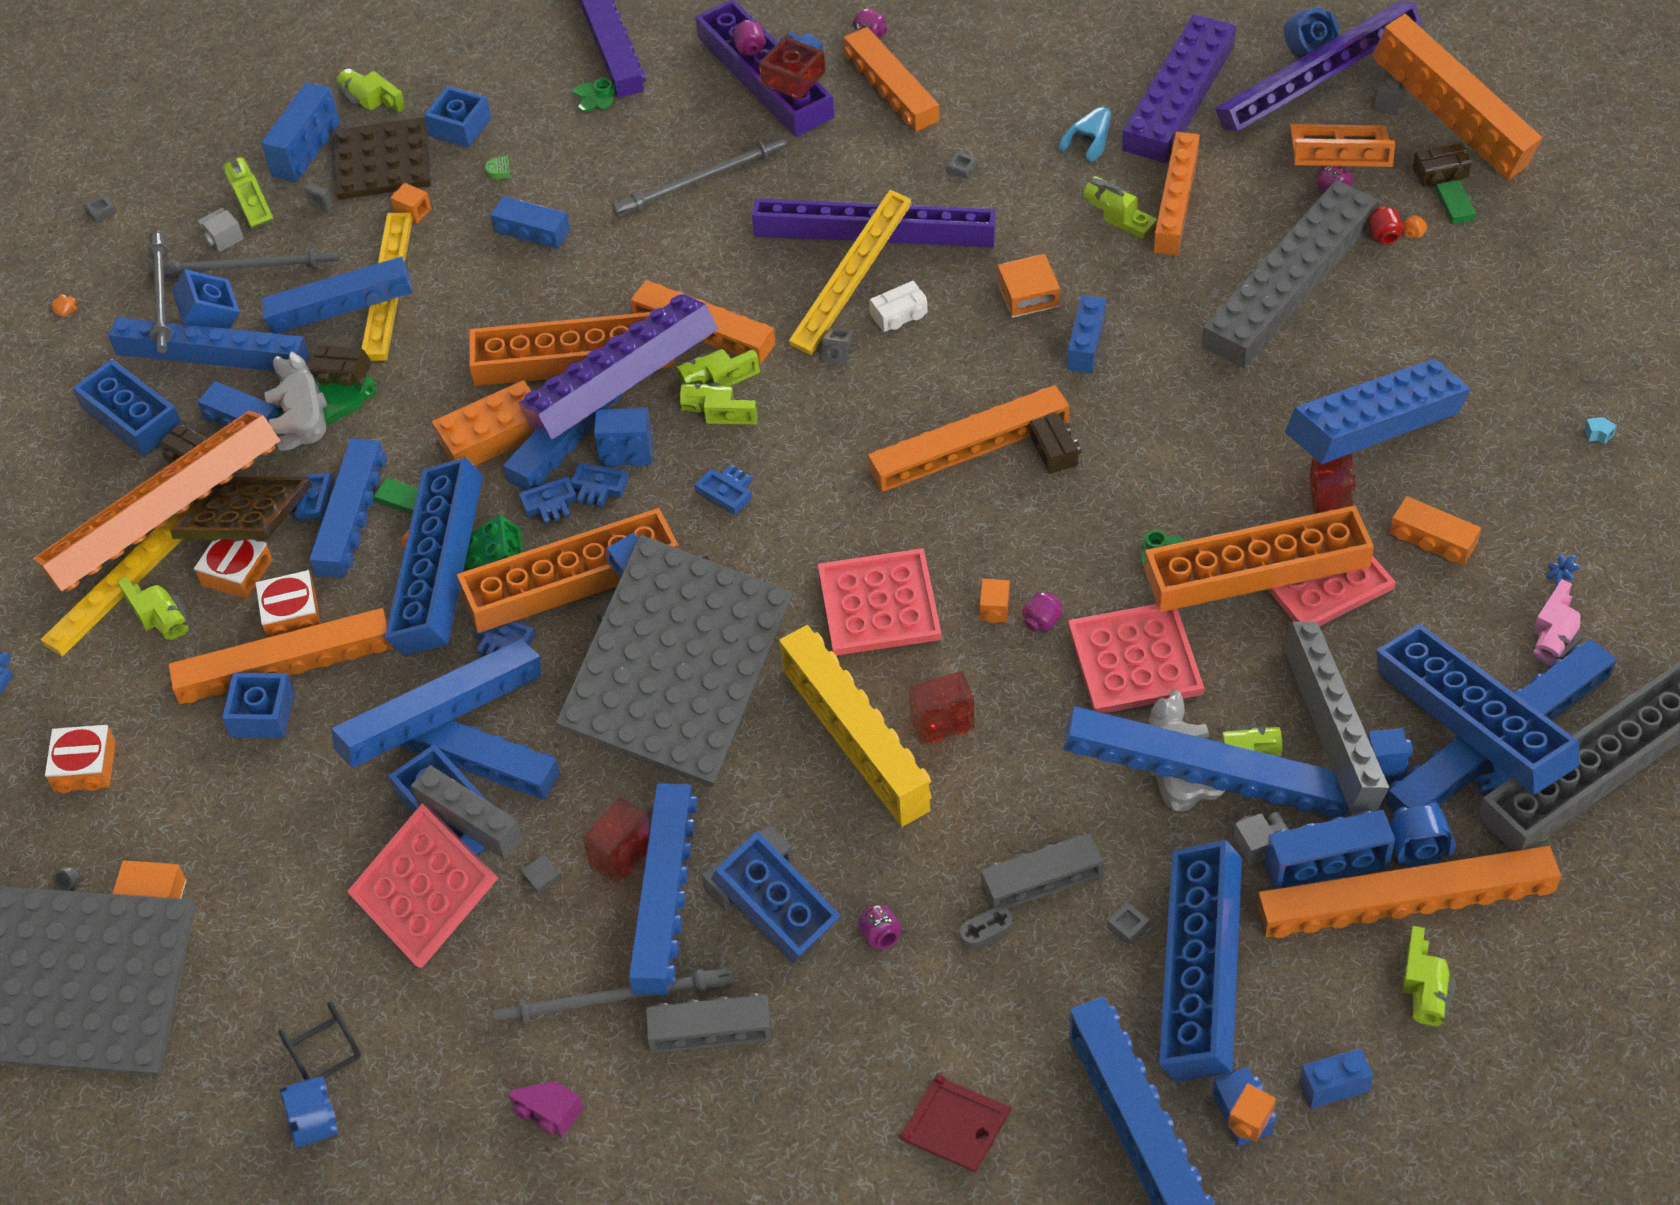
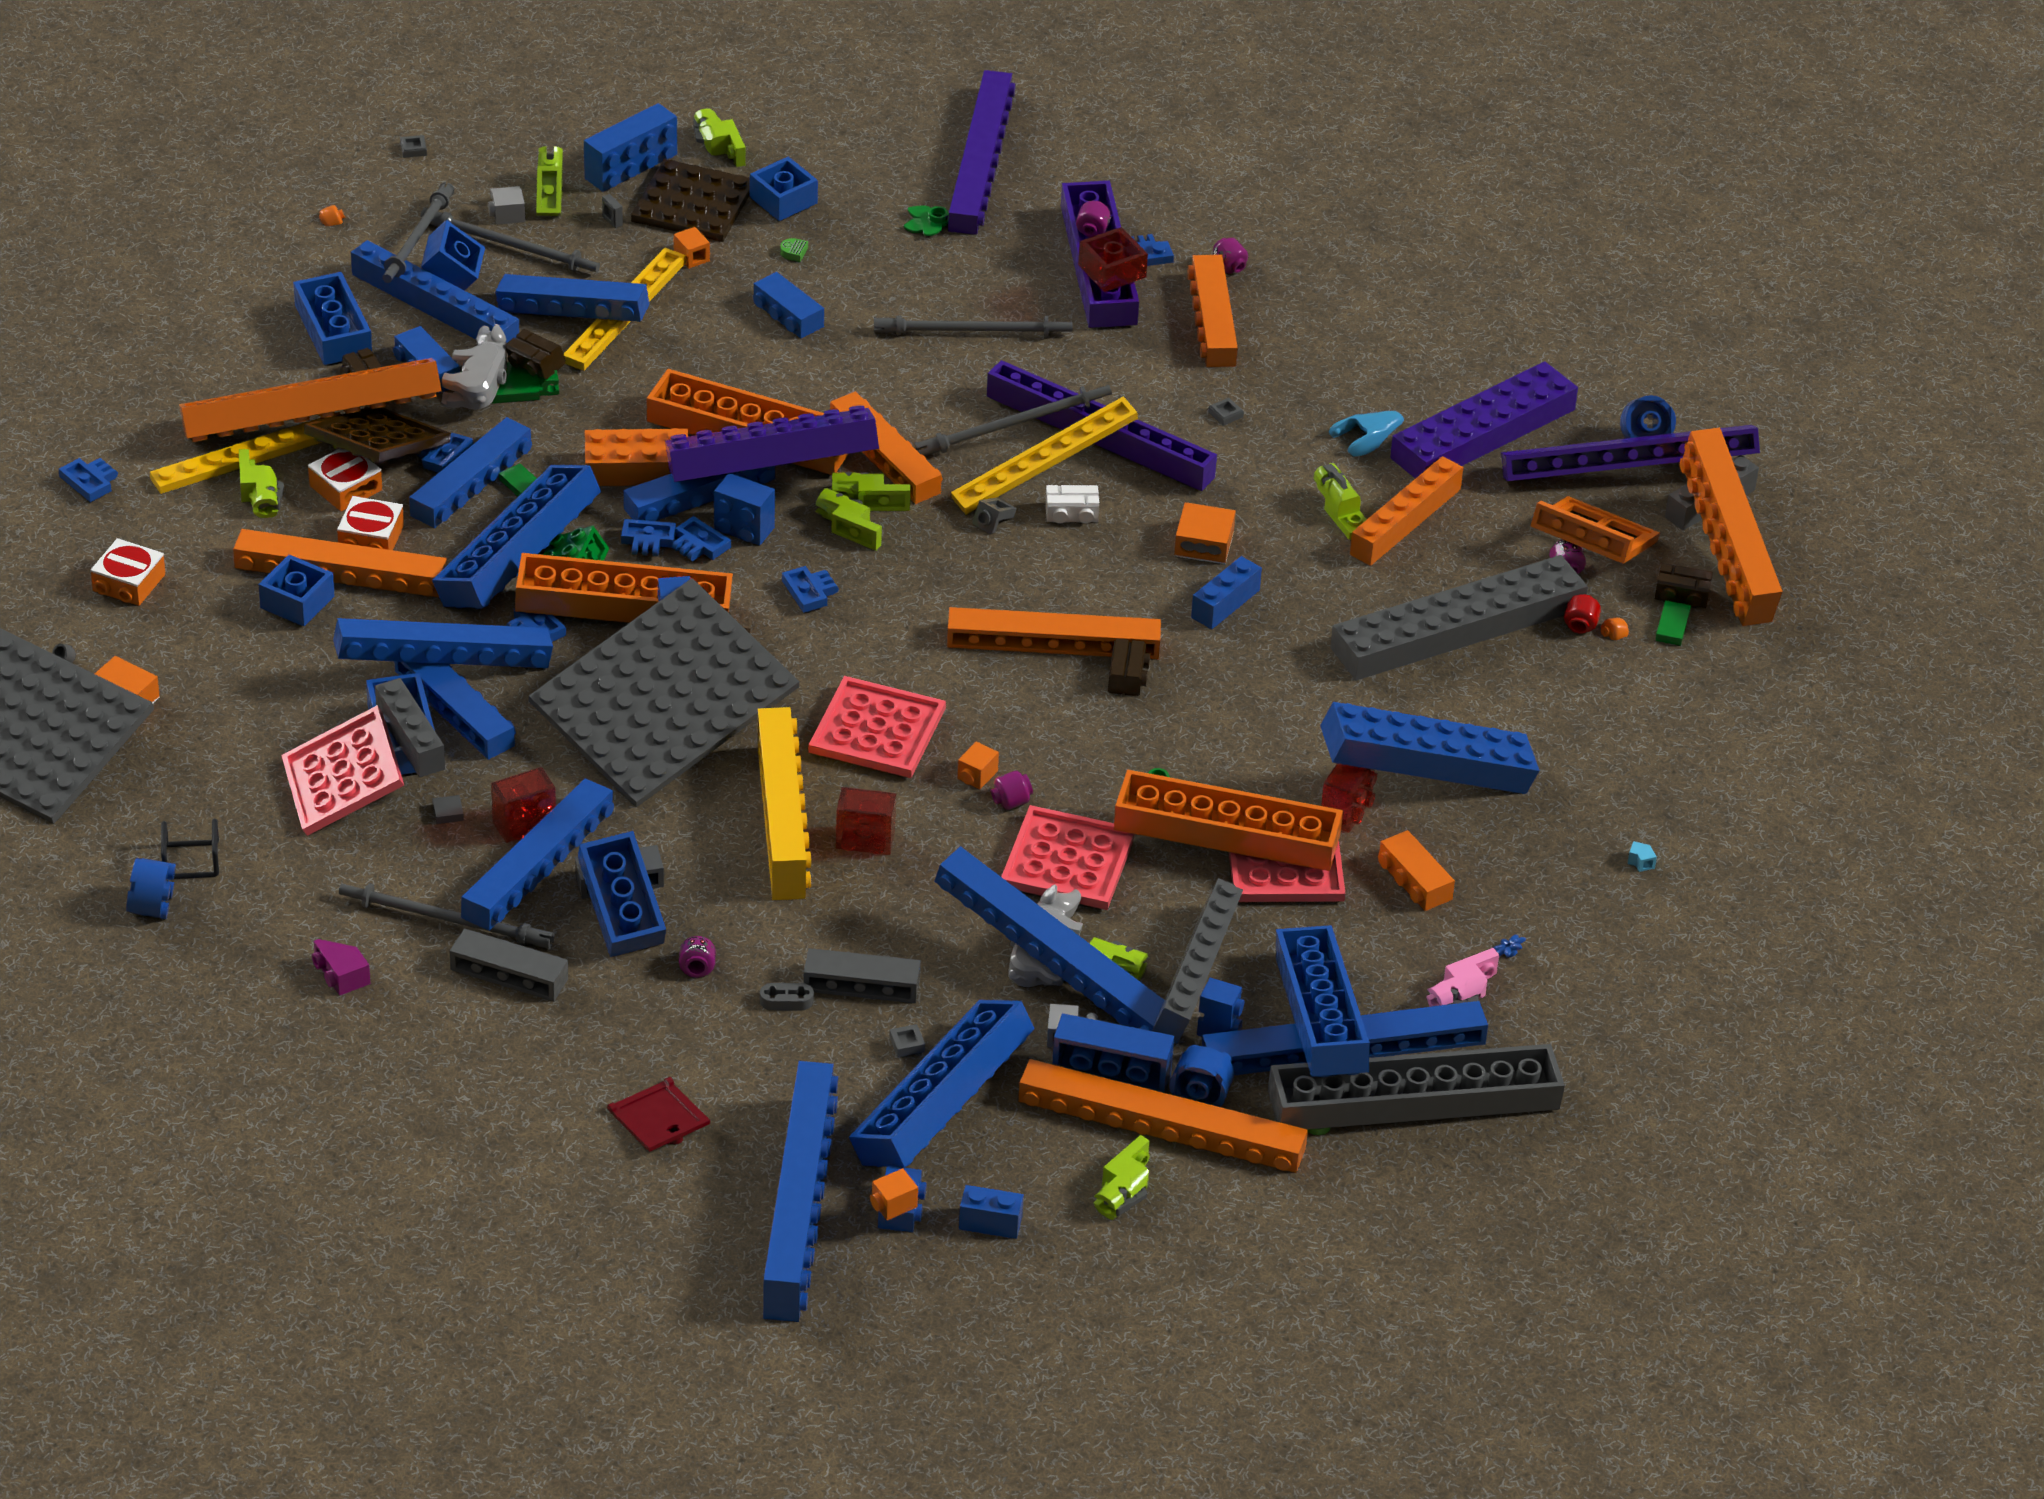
camera: 20 degrees right, 10 degrees down
(749, 295) = (942, 441): none -> dark grey bar

